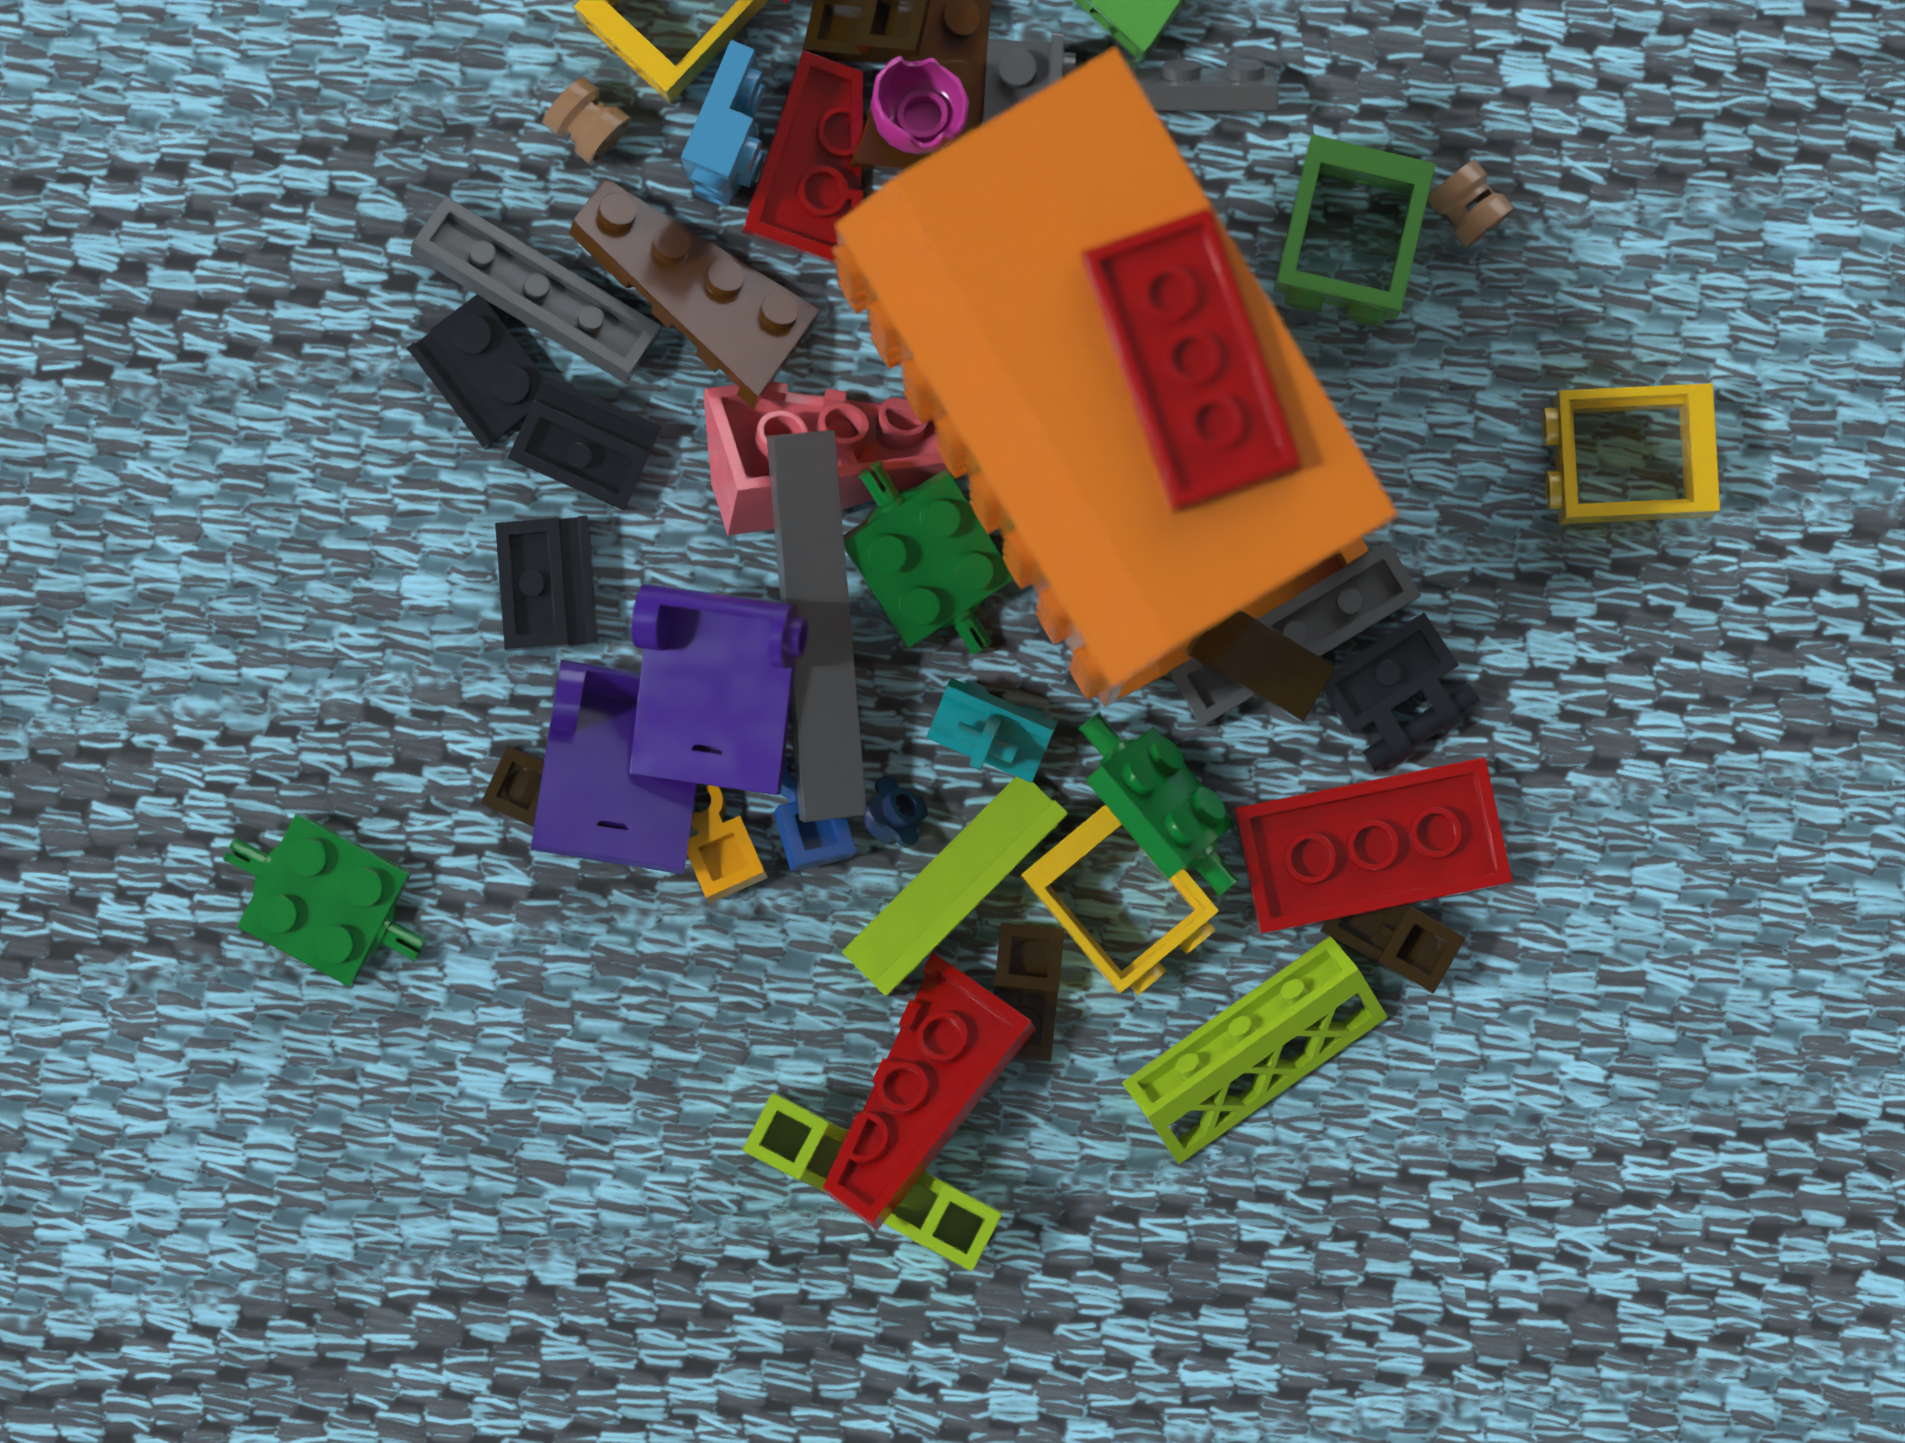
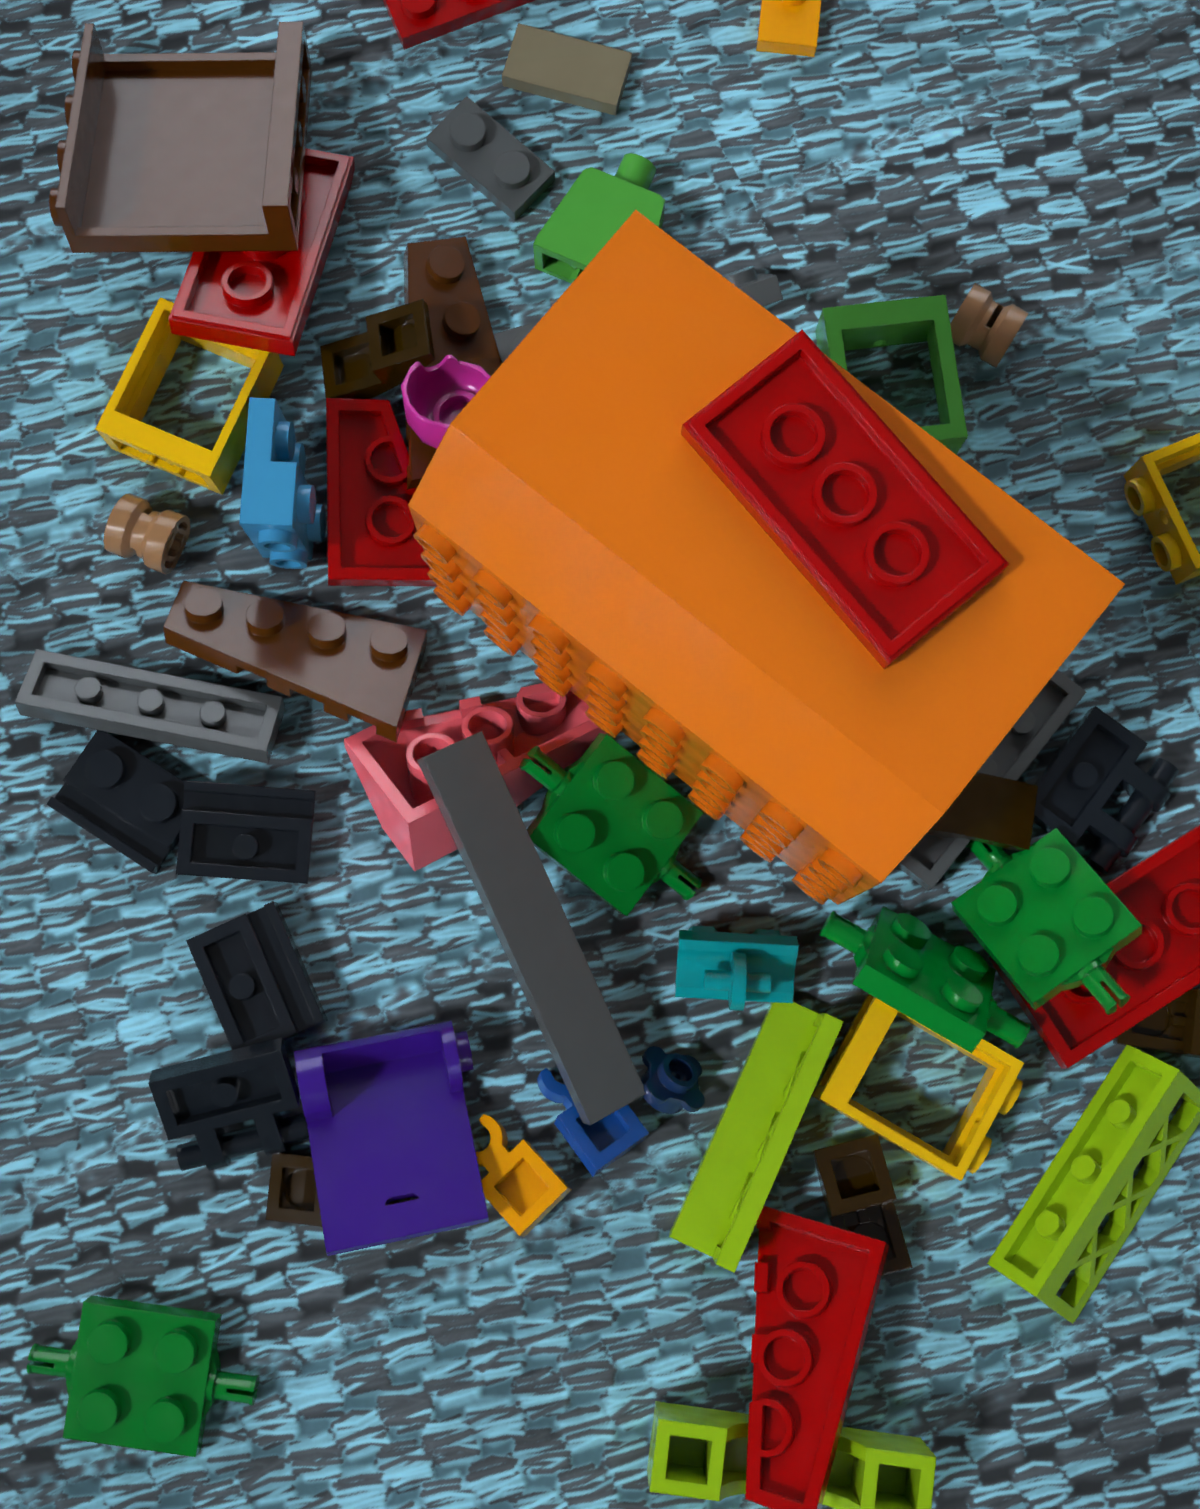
camera: 25 degrees left, 5 degrees down
(486, 672) = (227, 1090): none -> black plate
(715, 679) = (452, 1016): dark purple door -> none
(1293, 792) = (1048, 920): none -> green plate

